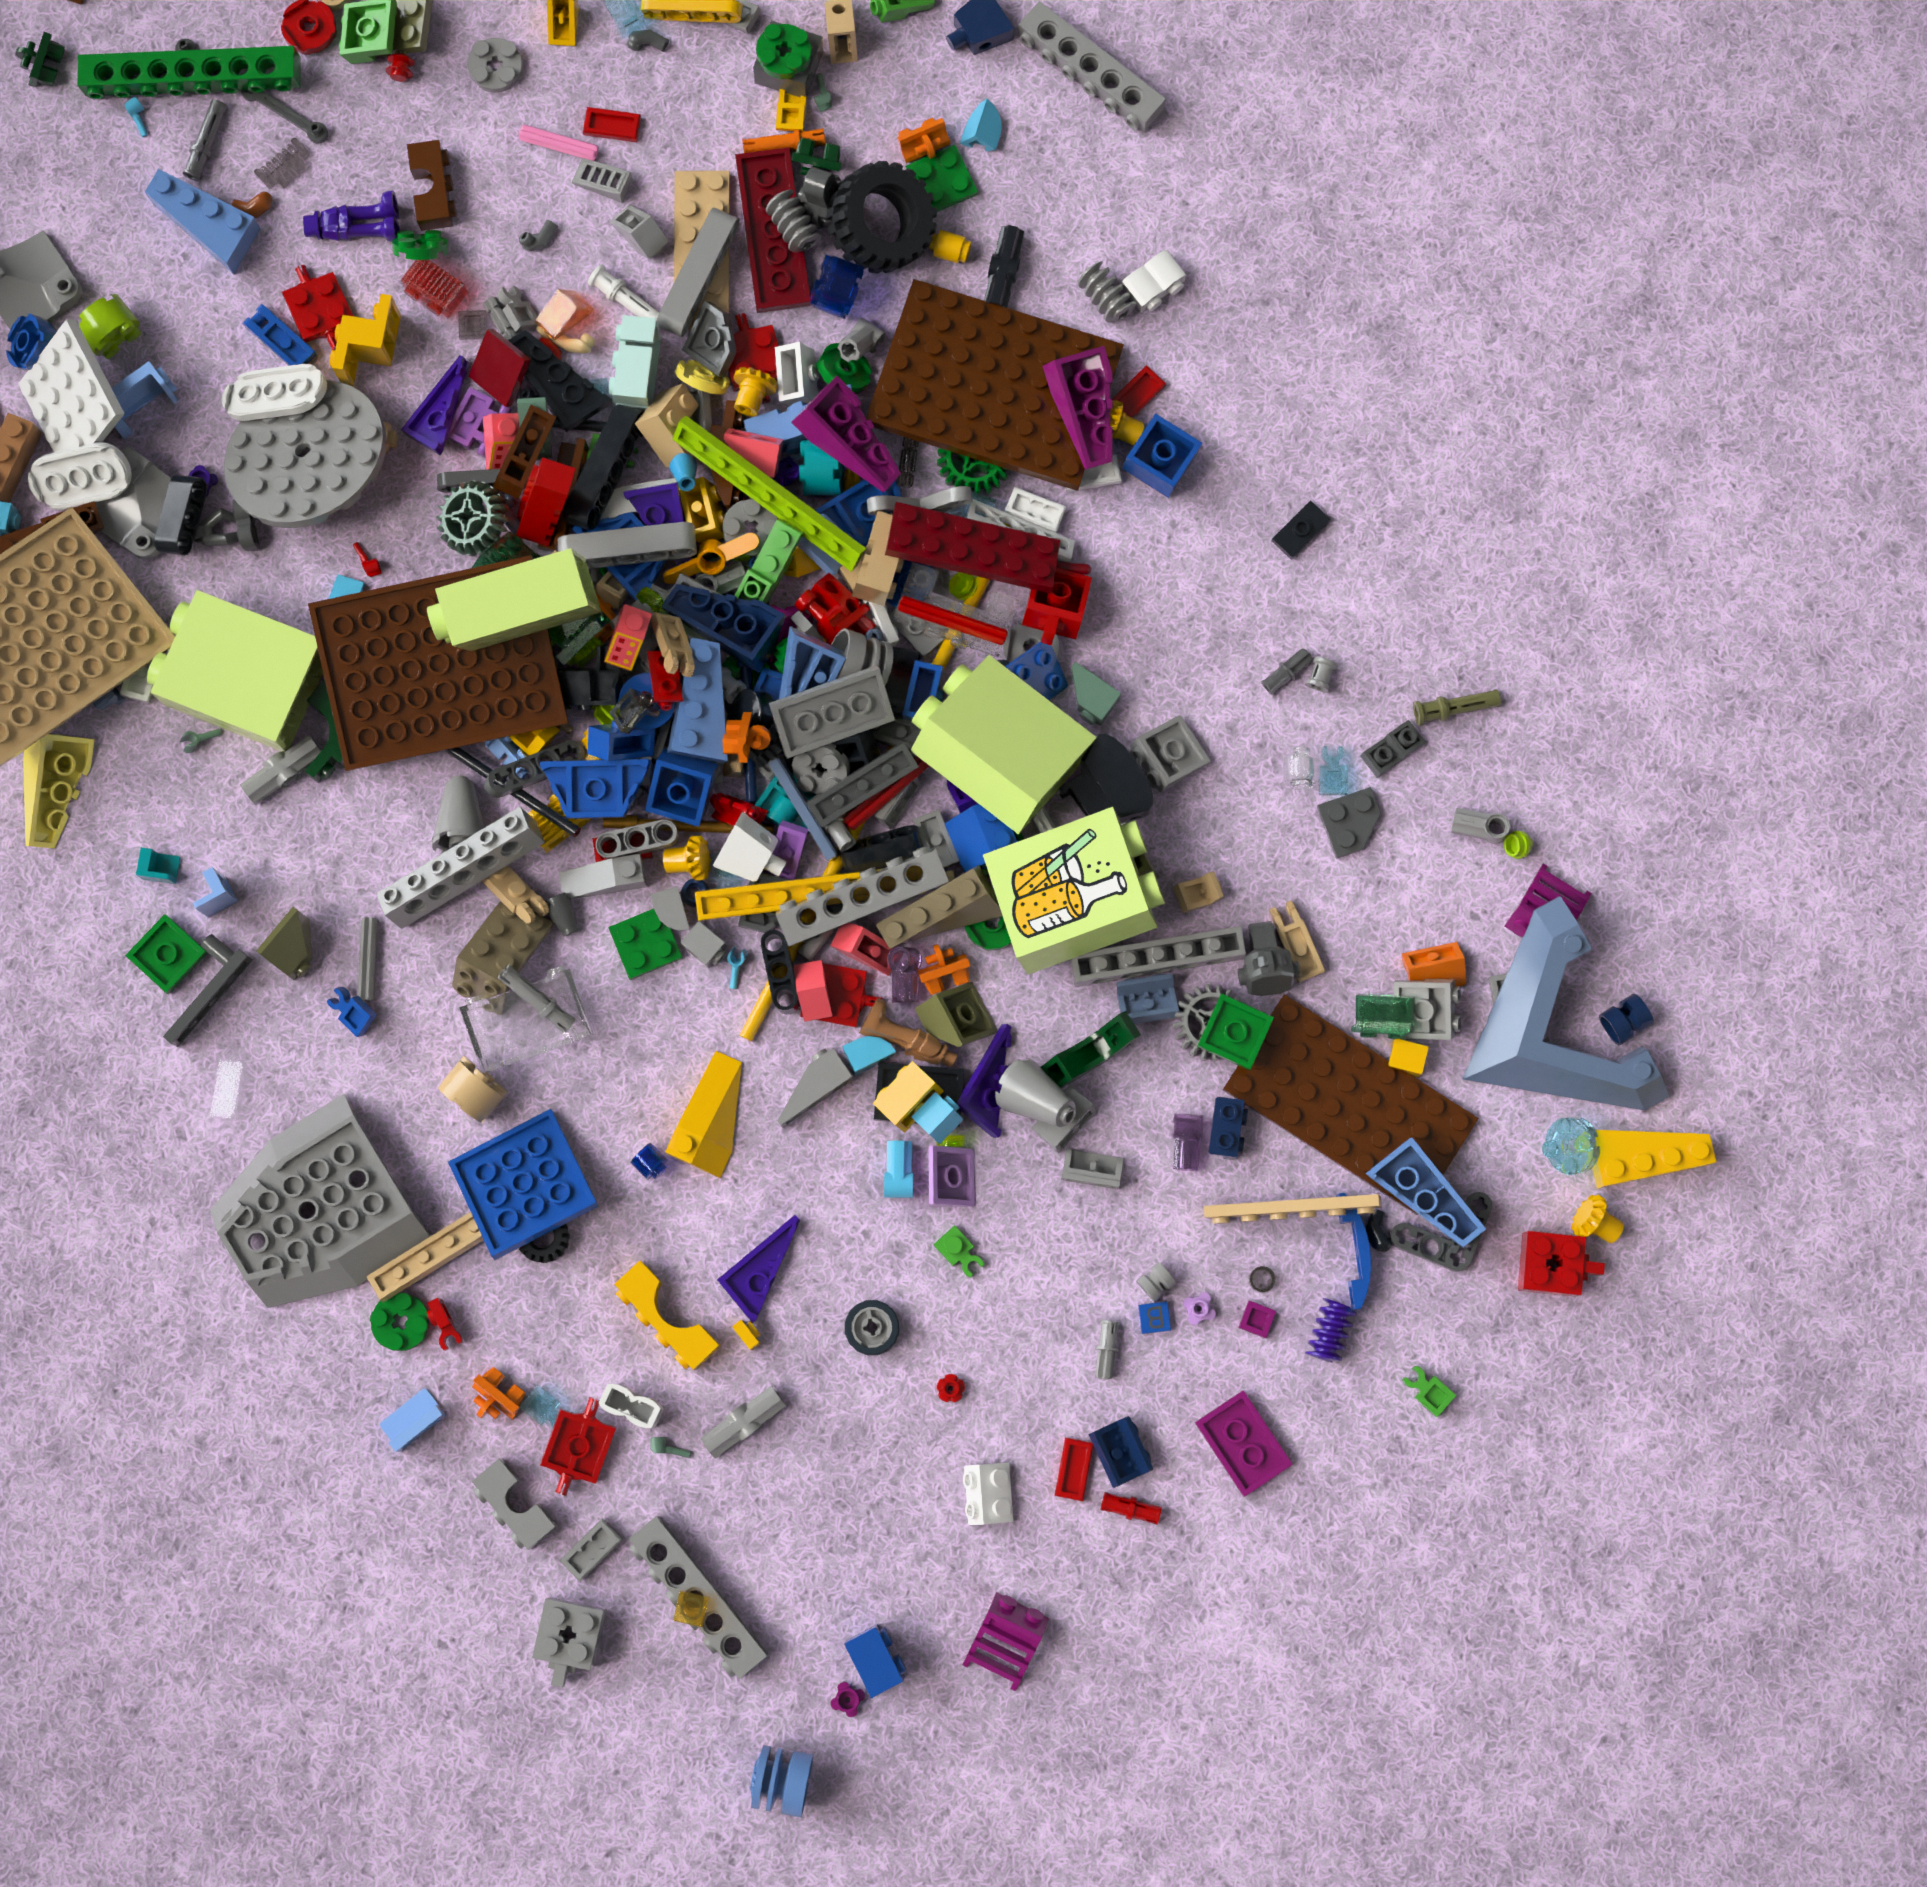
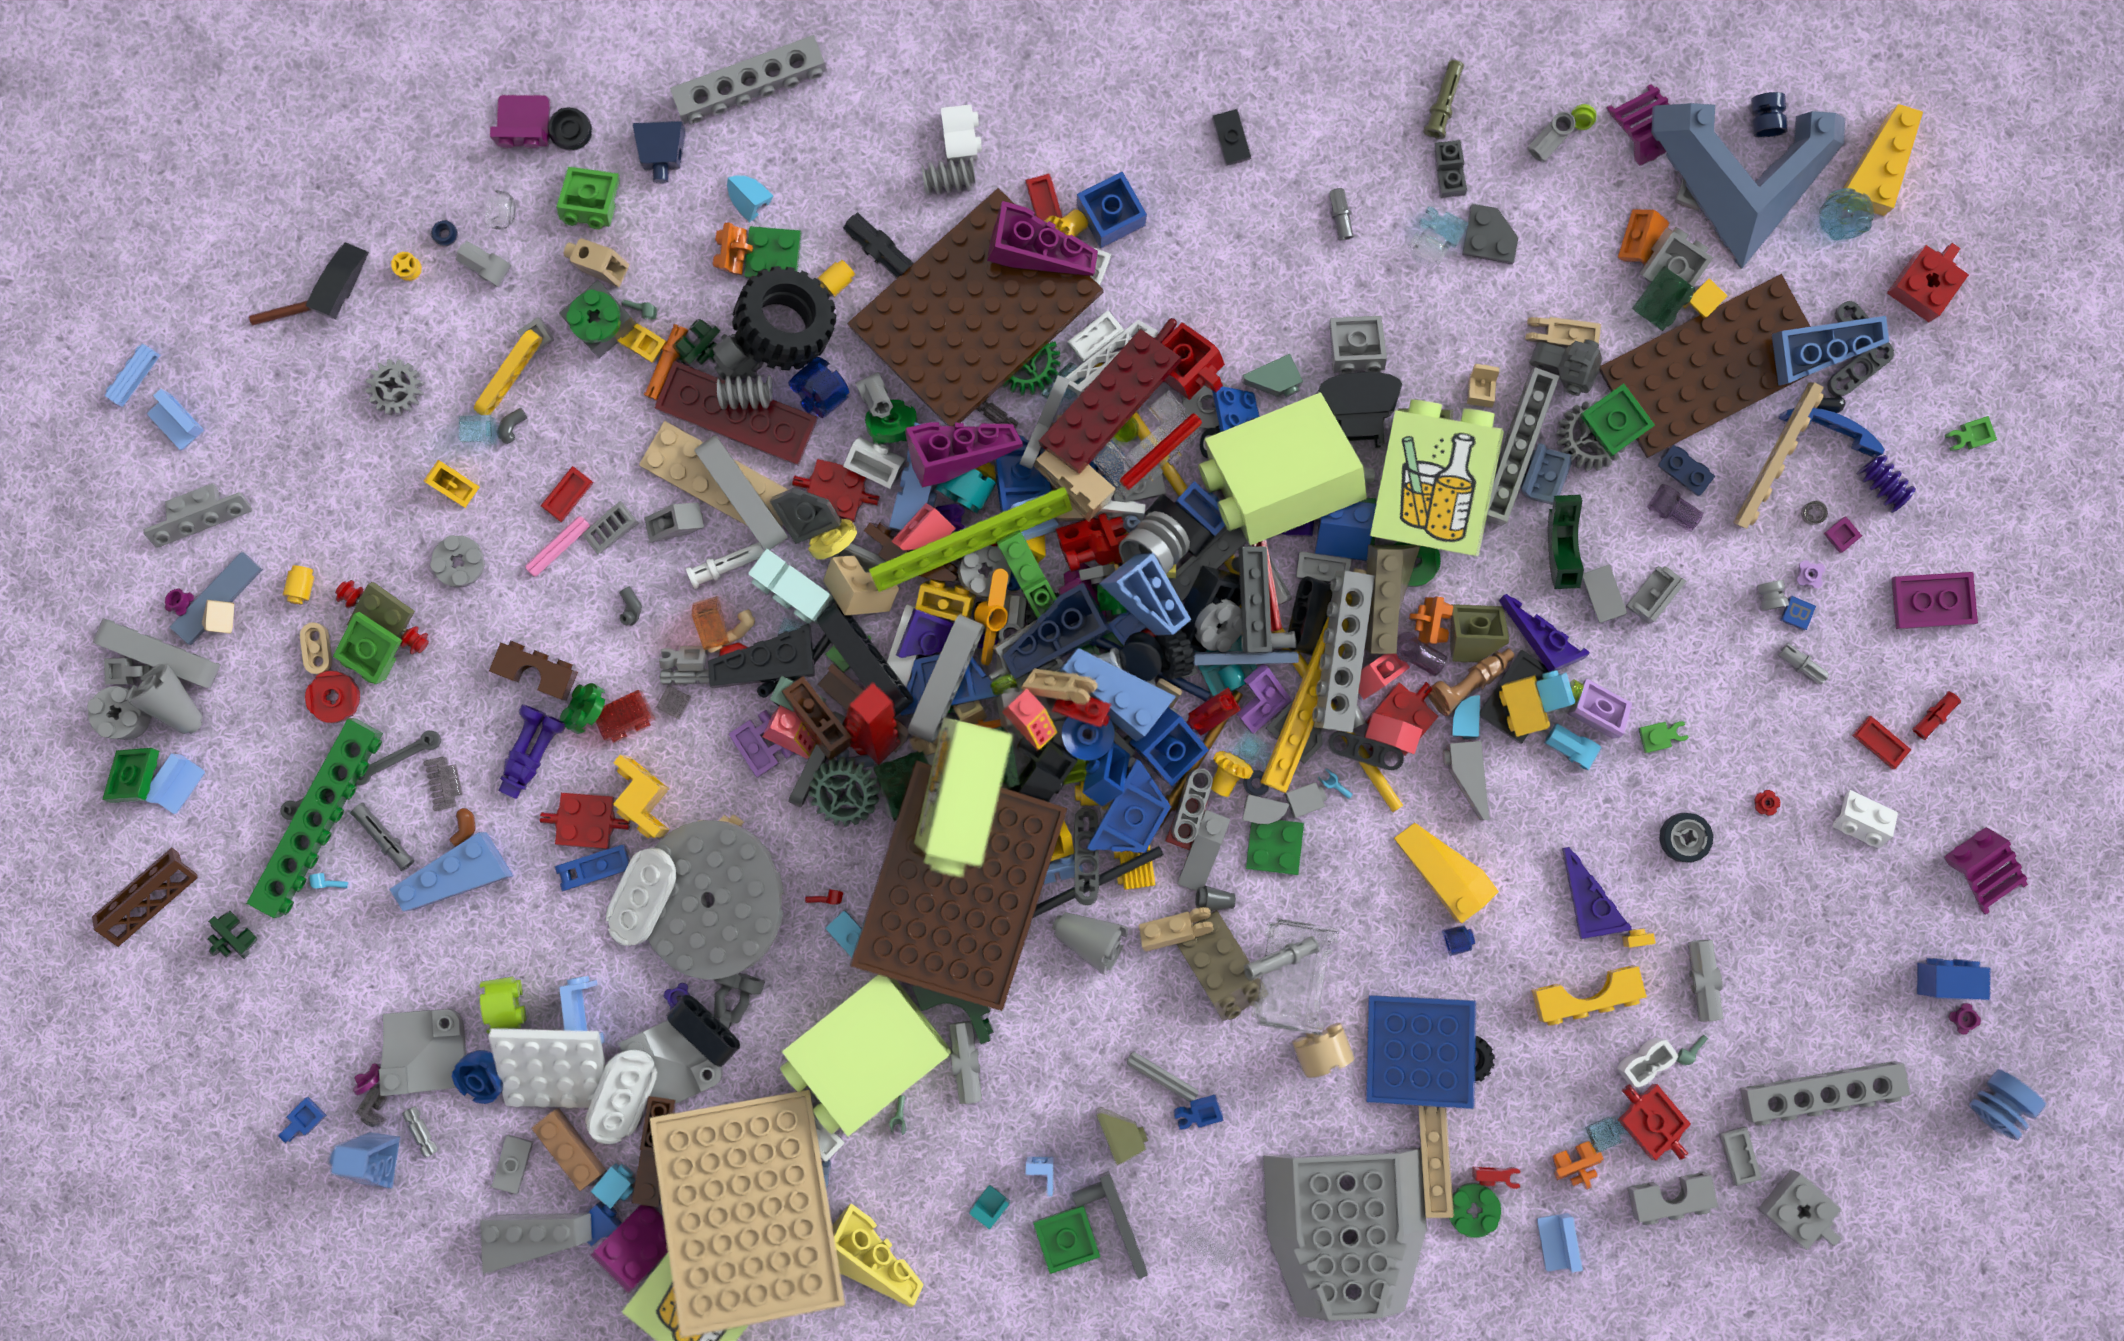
camera: 55 degrees left, 5 degrees up
(435, 414) = (737, 778): dark purple wing -> none
(460, 868) = (1136, 960): light grey brick -> none
(499, 367) = (728, 700): dark red tile -> none
(632, 709) = (1093, 749): clear smoke bracket -> none
(684, 470) = (907, 597): dark azure cone -> none
(691, 1608) = (1836, 1102): clear yellow tile -> none
(742, 737) = (1166, 674): orange hips -> none
(749, 851) = (1253, 721): white torso -> none
(753, 388) = (869, 504): yellow gear -> none
(832, 711) = (1188, 589): light grey plate -> none
(1034, 1095) = (1581, 604): light grey cone -> none
(1121, 1451) = (1890, 697): dark blue bracket -> none
(1321, 674) = (1360, 189): light grey bush -> none
(1594, 1219) = (1912, 231): yellow gear -> none

